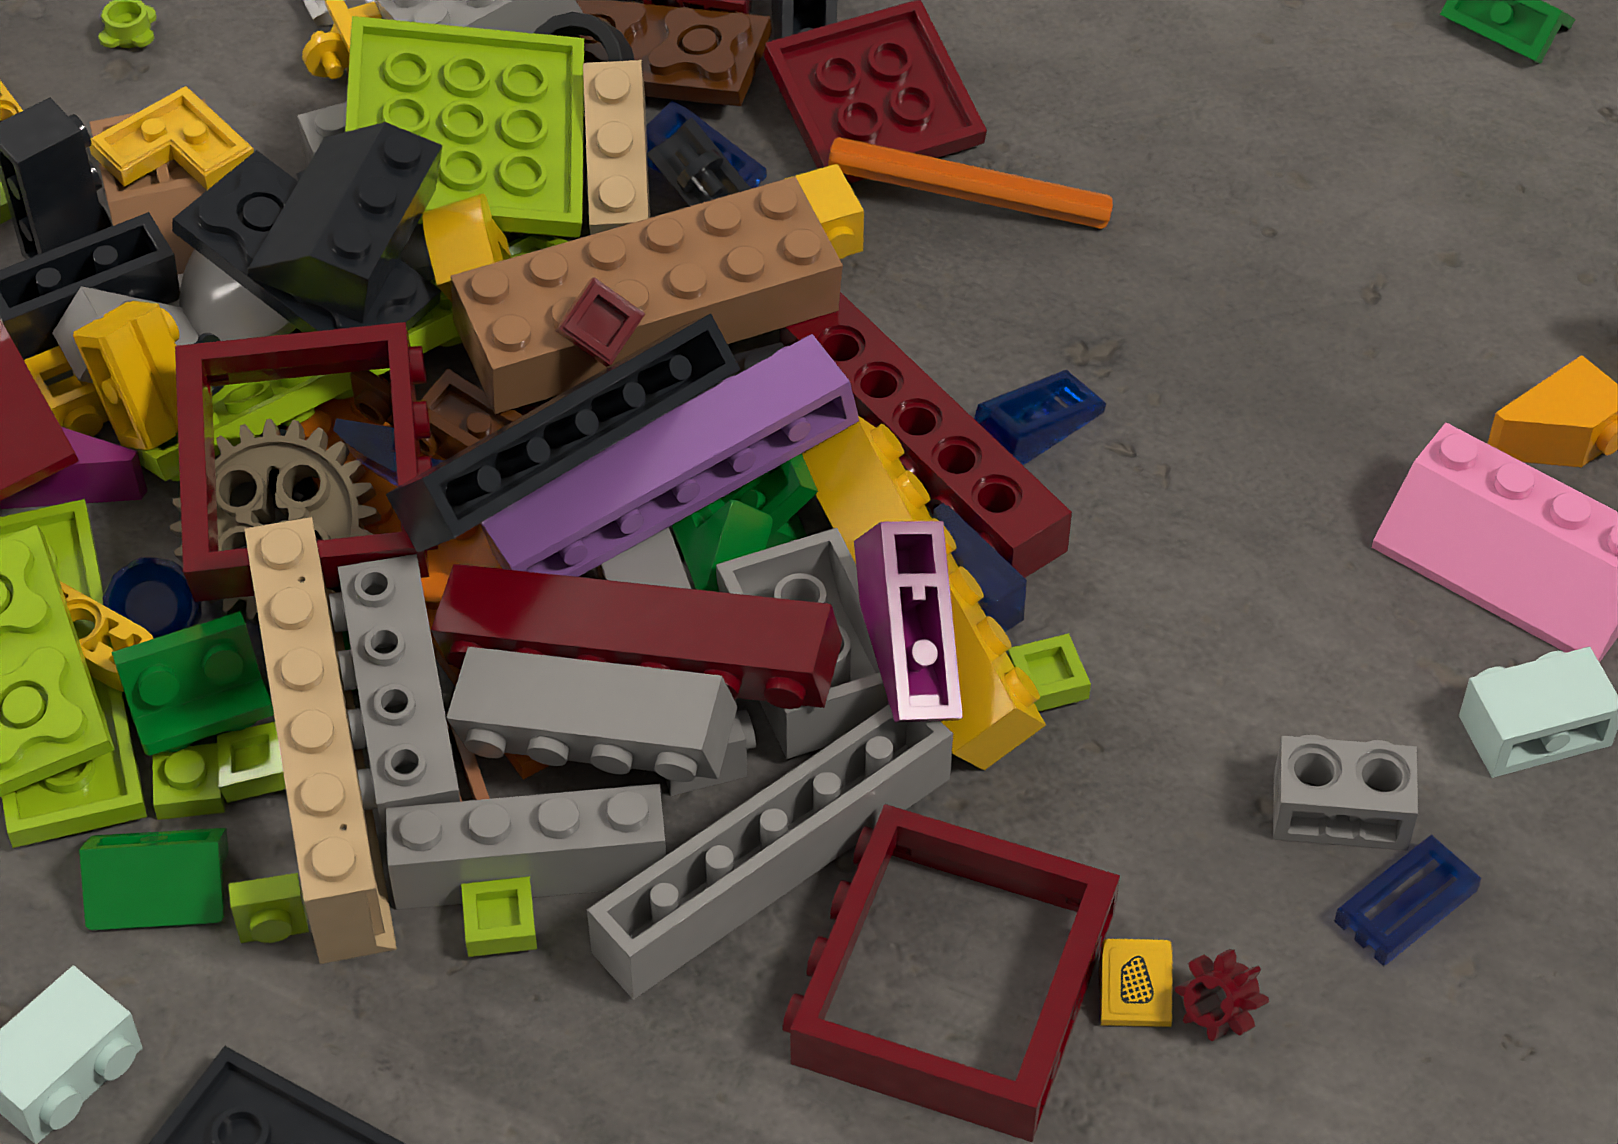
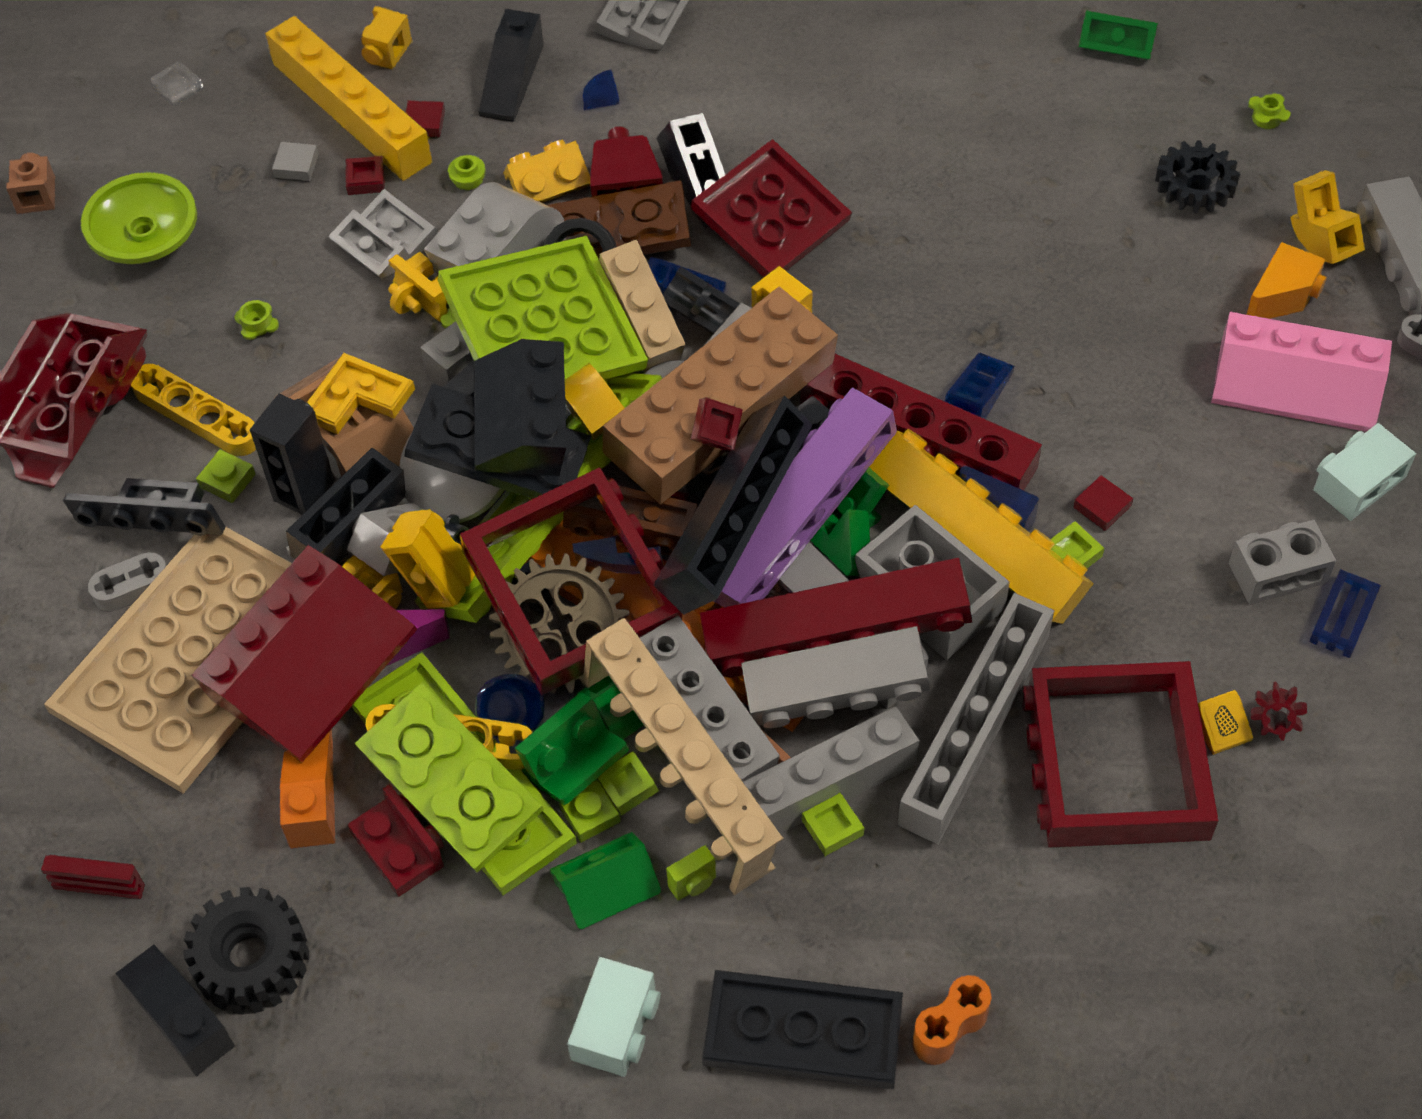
camera: 20 degrees left, 5 degrees up
(910, 617) = (997, 547): magenta slope -> none
(971, 183) = (861, 250): orange axle -> none
(1131, 627) = (1103, 503): none -> dark red tile
(1514, 234) = (1197, 176): none -> black gear

